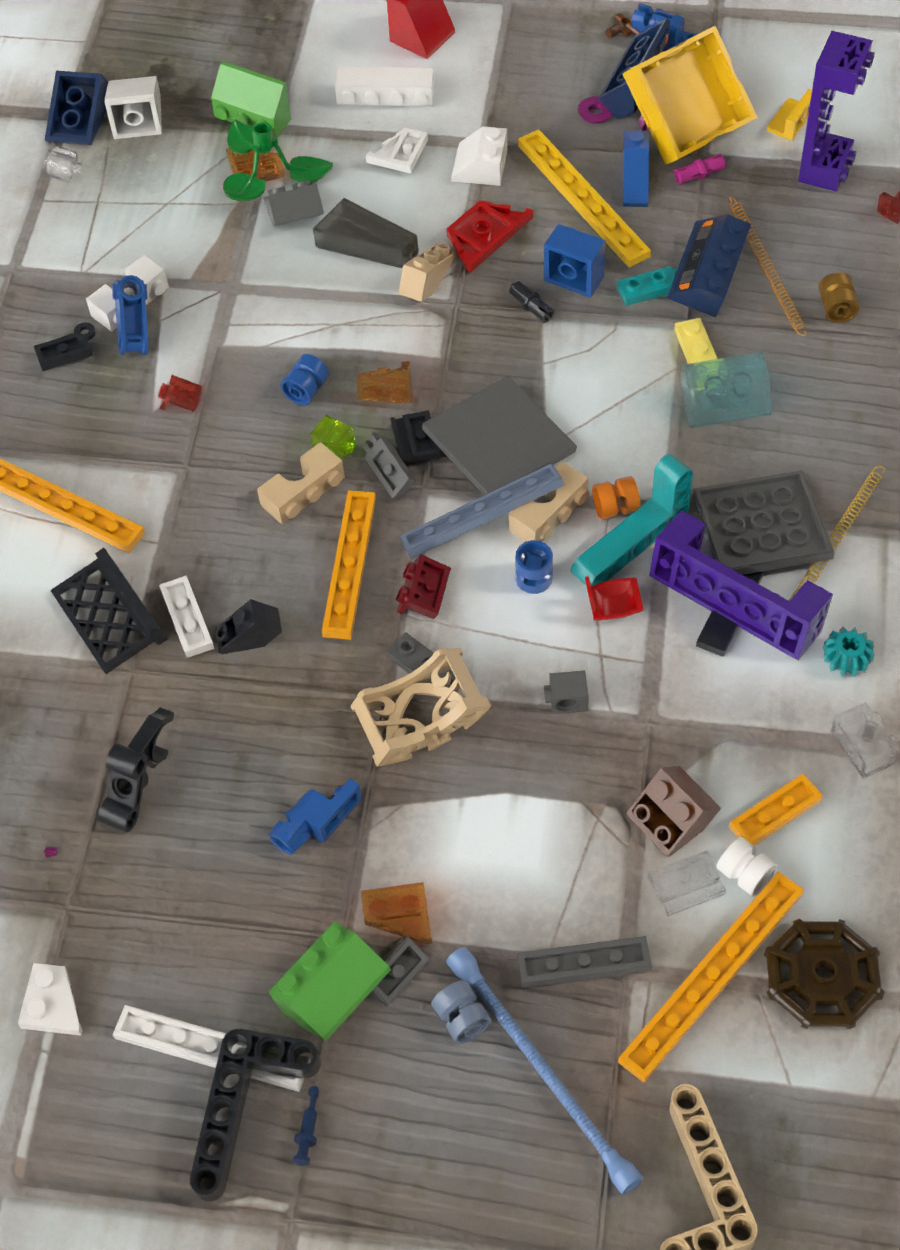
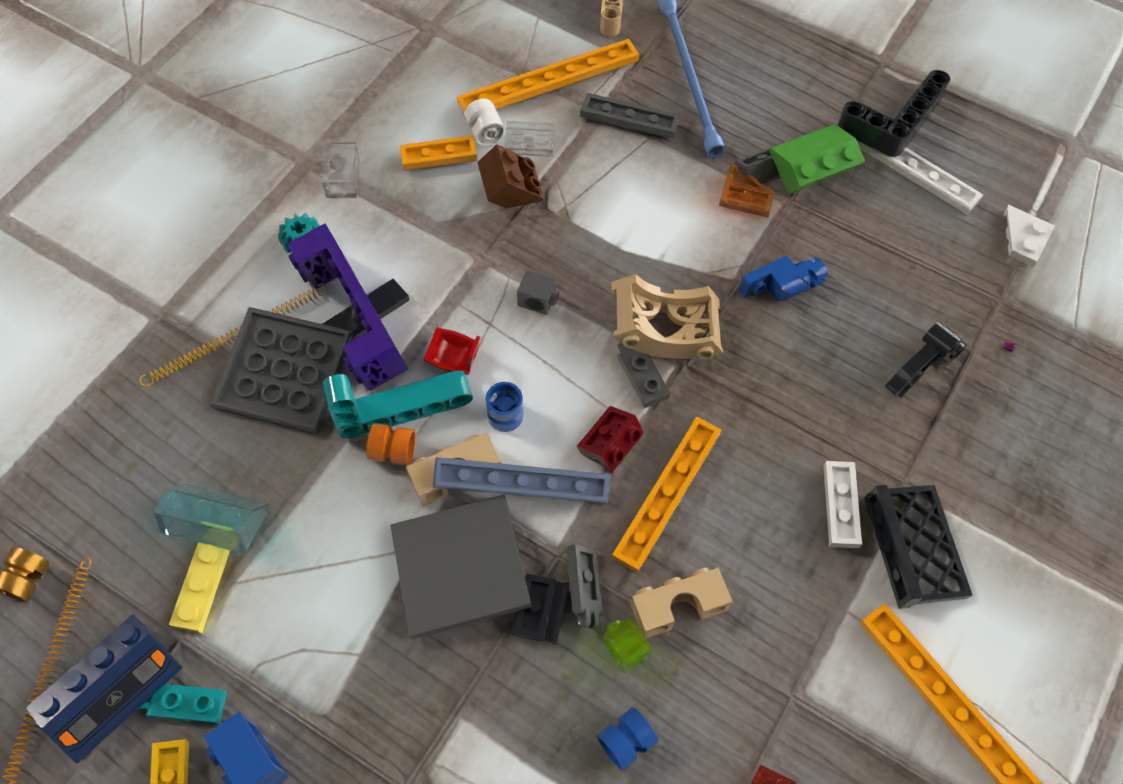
camera: 160 degrees left, 5 degrees up
(248, 628) = (787, 462): black slope -> none
(305, 1138) = (862, 89): dark blue piece -> none
(386, 385) = (543, 684): clear orange wing -> none
(458, 1007) = (730, 112): sand blue wheel -> none
(531, 301) = (324, 740): black axle -> none
(818, 990) = (484, 41): dark brown plate -> none

